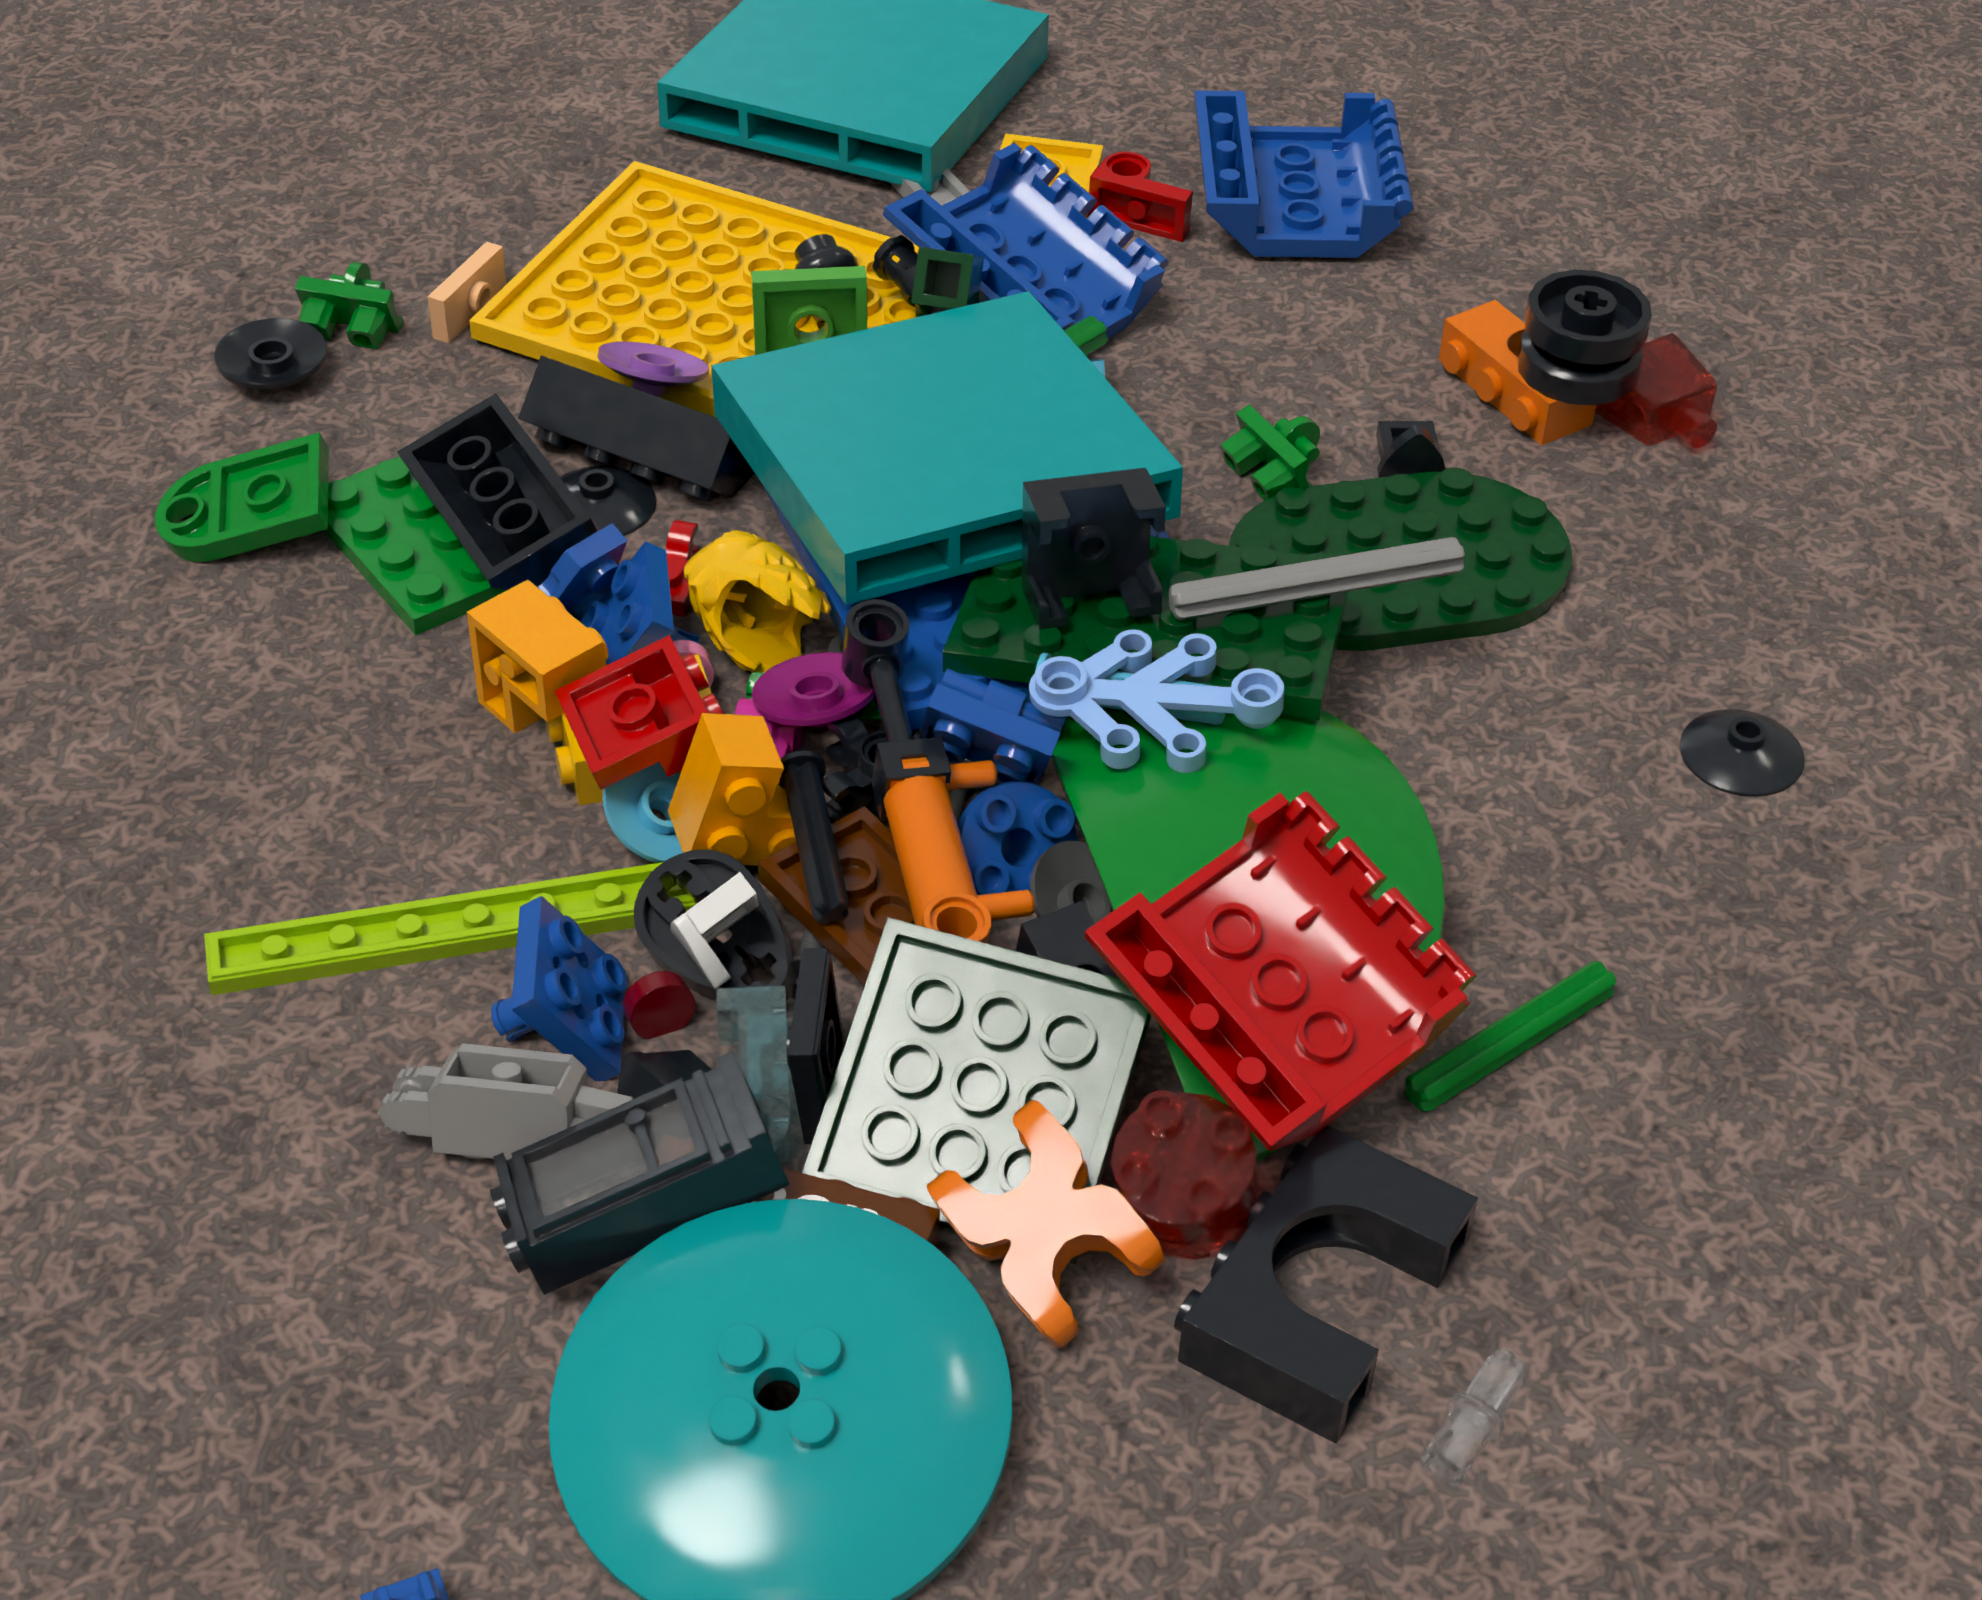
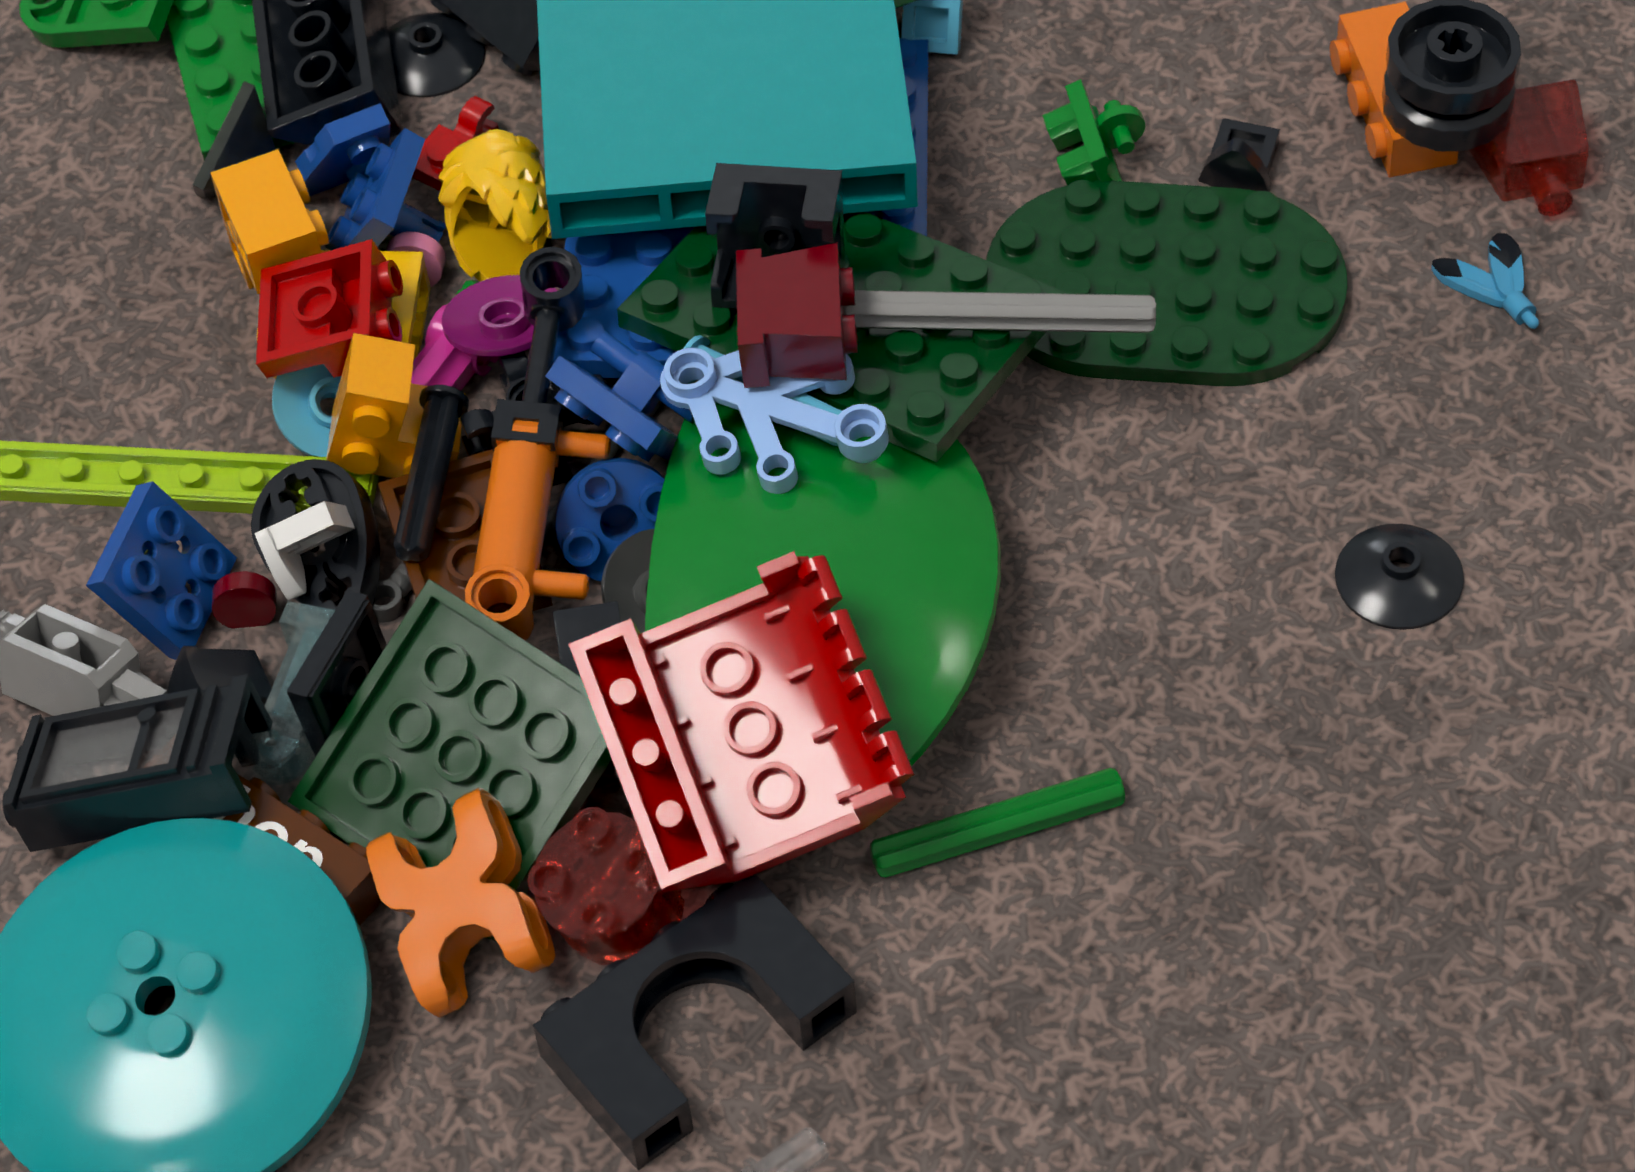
camera: 25 degrees right, 10 degrees up
(457, 591) = (239, 139): none -> pearl dark grey slope
(1147, 605) = (794, 315): none -> dark red hips
(1686, 506) = (1498, 288): none -> dark azure piece

